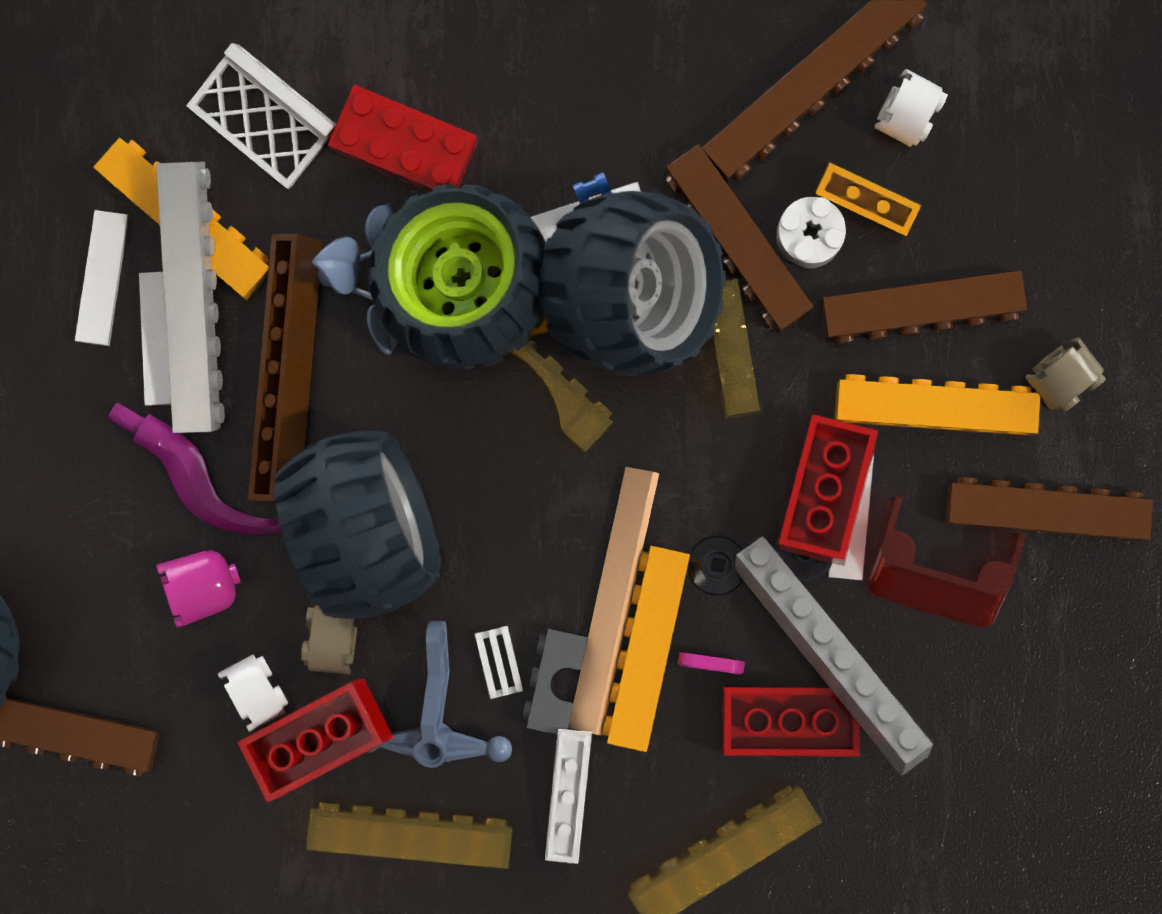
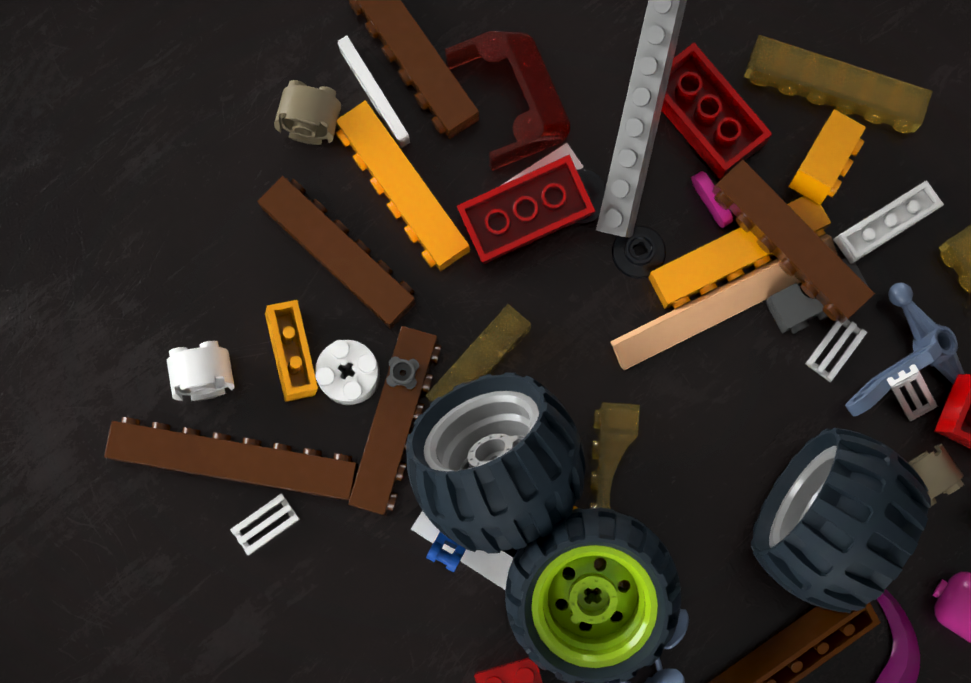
camera: 125 degrees left, 5 degrees down
(409, 700) = (905, 380): none -> white tile
(617, 691) = (792, 242): none -> reddish brown brick
(664, 789) = (828, 158): none -> light orange brick
(740, 38) = (242, 539): none -> white tile
(772, 265) = (408, 380): none -> dark grey plate
(1042, 449) = (373, 92): none -> white tile

